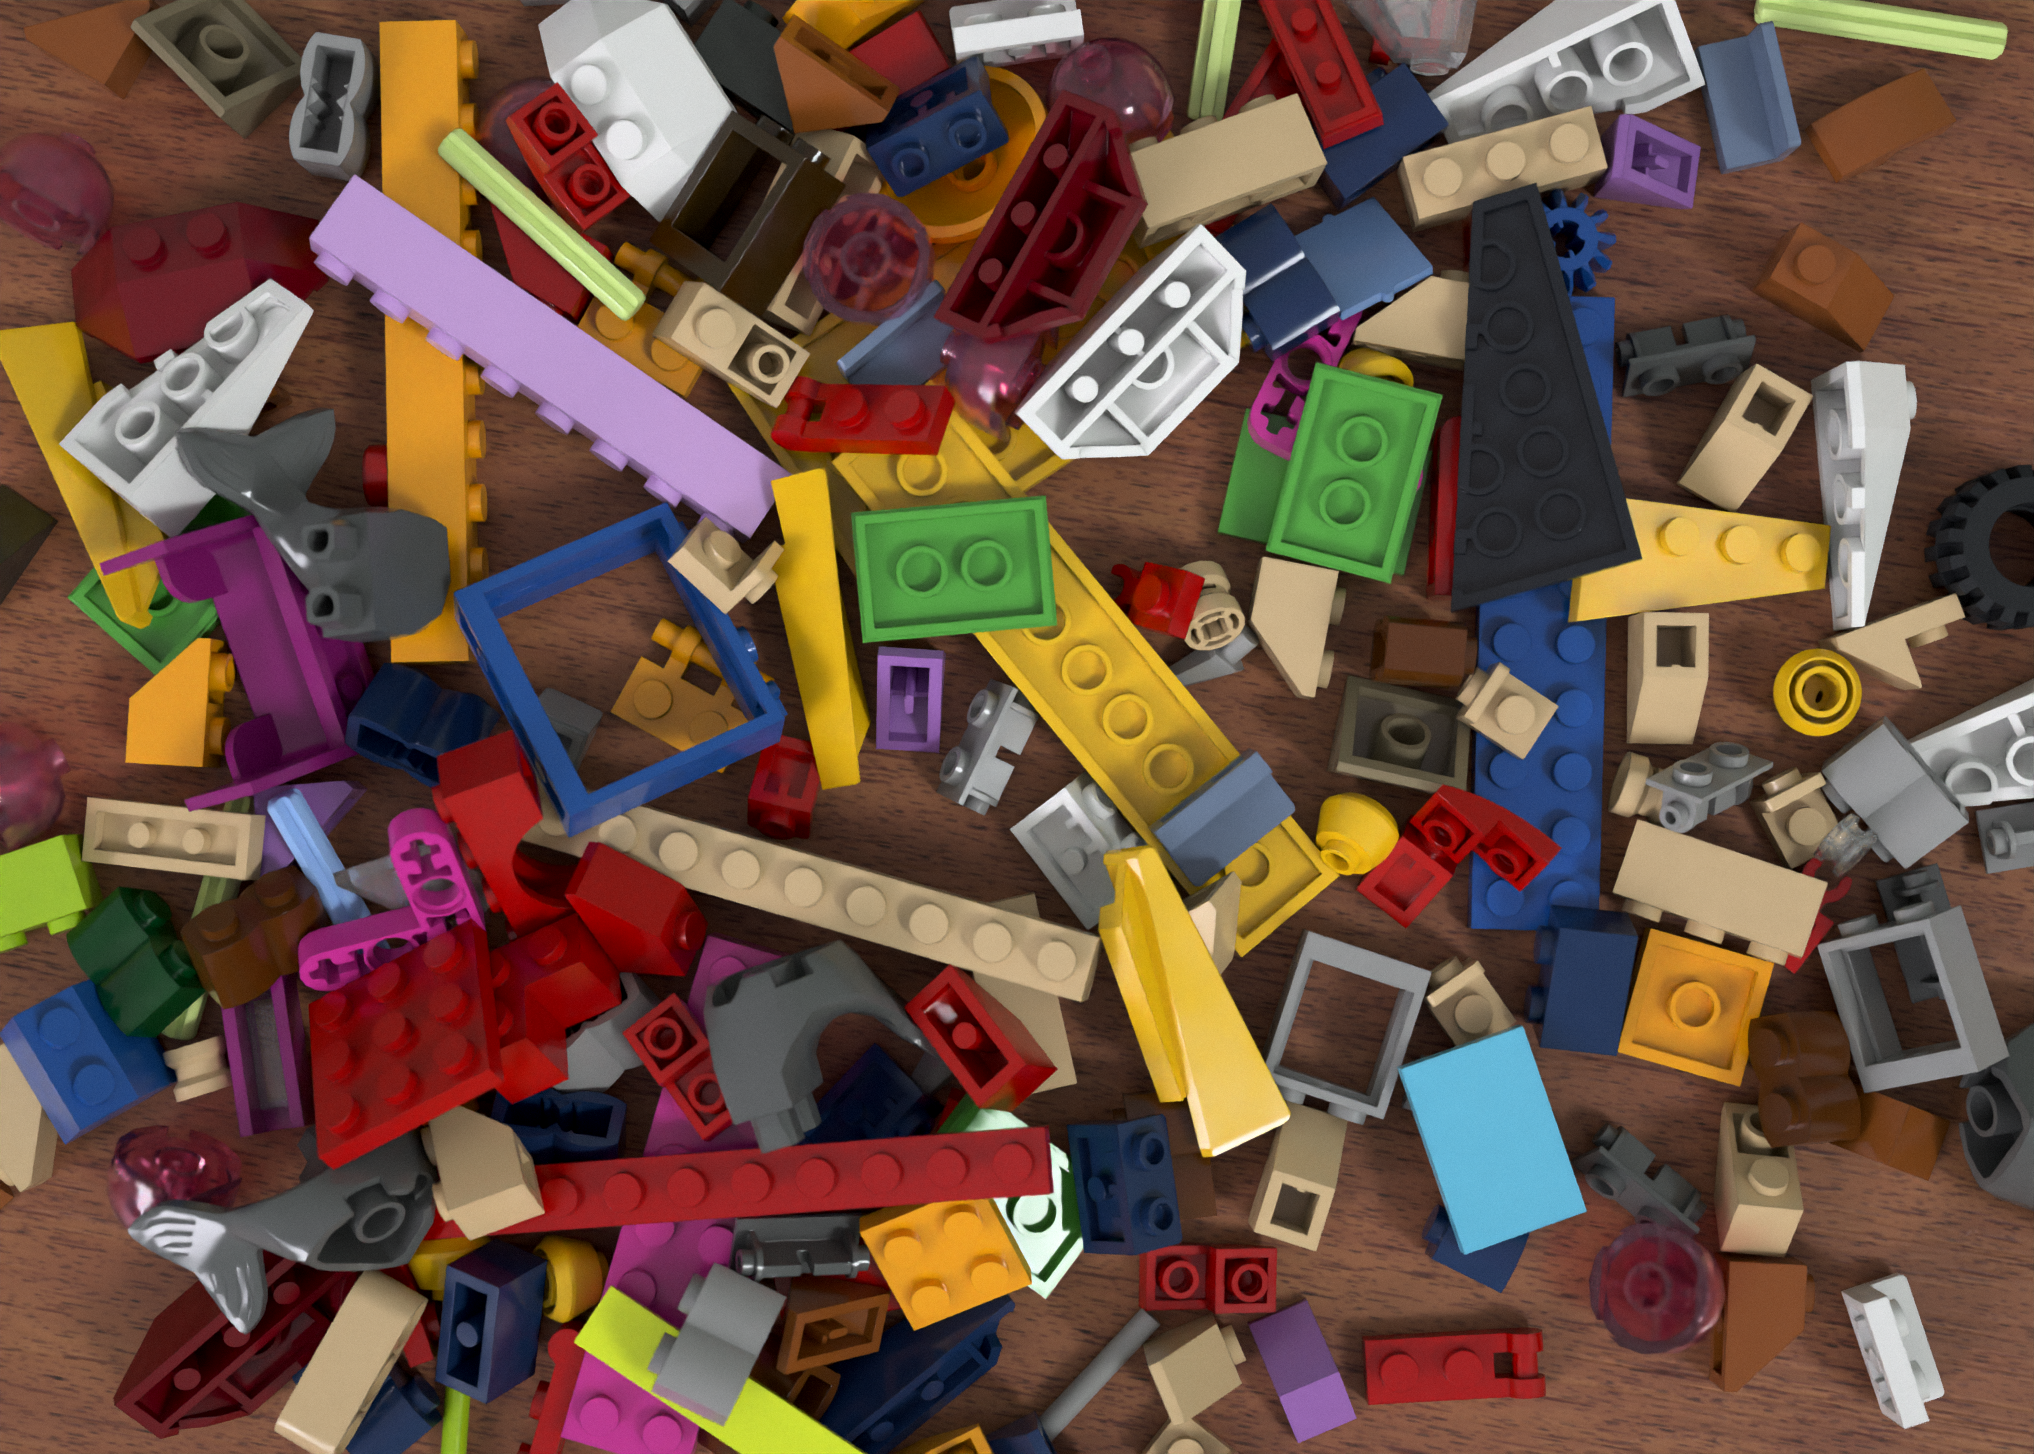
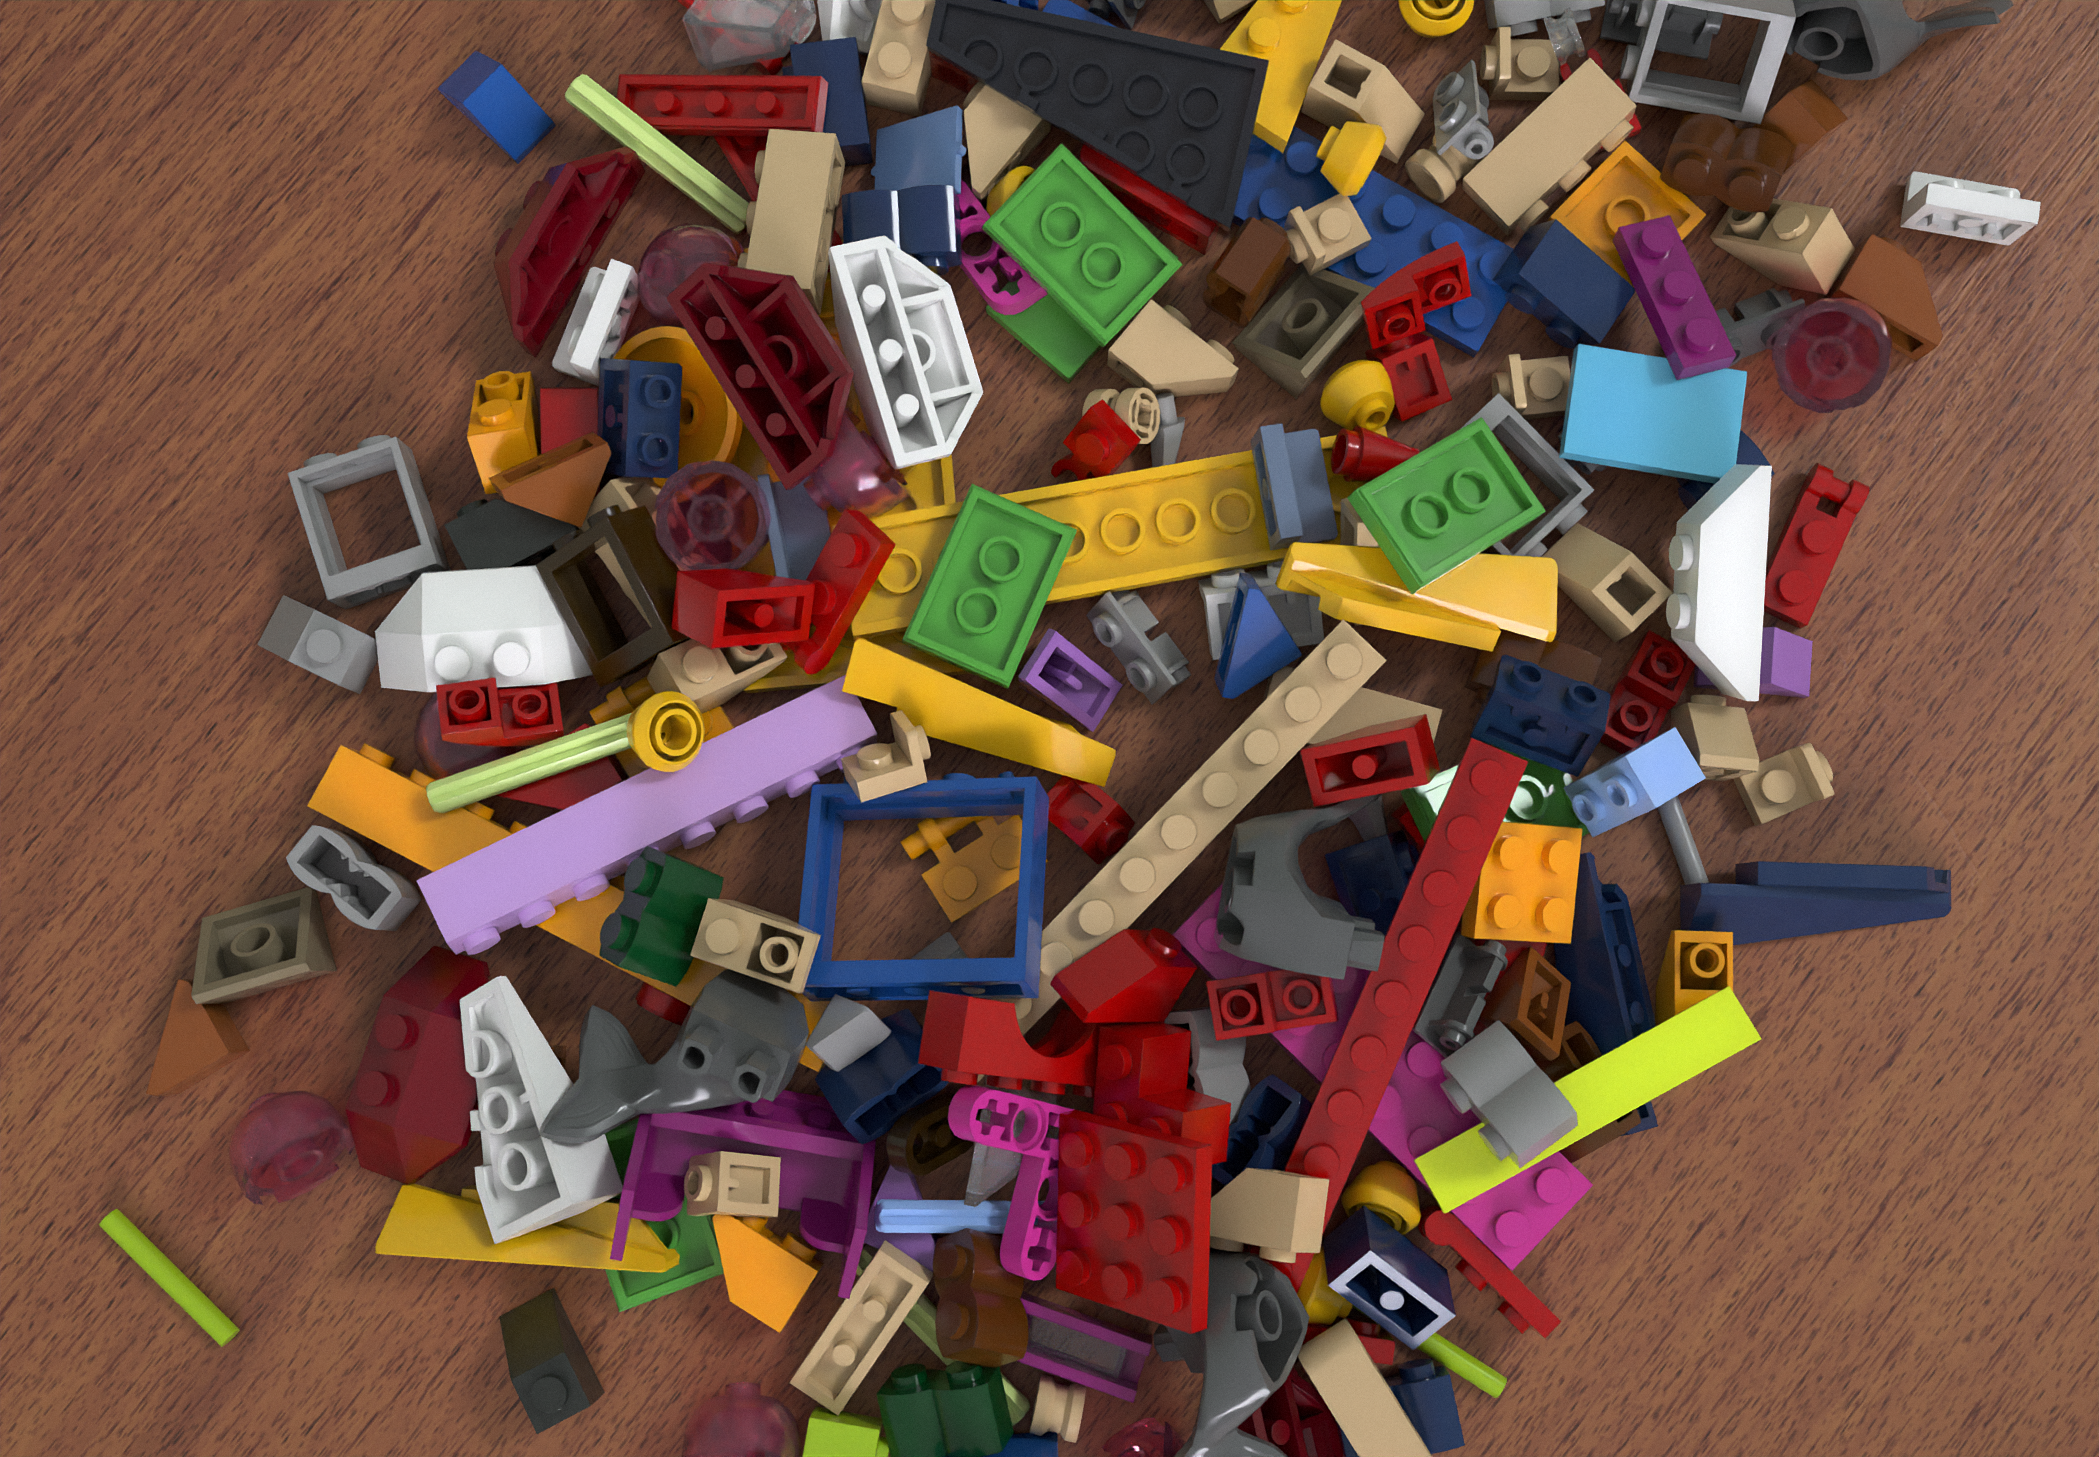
camera: 60 degrees left, 5 degrees down
(240, 640) = (733, 1185): none -> tan bracket
(376, 794) = (923, 1138): none -> dark brown plate
(438, 668) = (845, 1033): none -> light grey slope
(452, 427) = (658, 916): none -> dark green brick
(474, 535) = (756, 943): none -> tan slope
(631, 333) = (666, 731): none -> yellow cone
(790, 338) = (741, 607): none -> red slope
(1044, 862) = (1253, 643): none -> blue slope
(1103, 1311) = (1634, 783): none -> light blue brick
(1279, 979) = (1446, 505): none -> bright green tile
(1296, 880) = (1366, 455): none -> red cone
(1354, 1291) = (1721, 580): none -> white wedge
(1597, 693) = (1350, 155): none -> yellow cone
(1625, 1097) = (1673, 297): none -> magenta plate

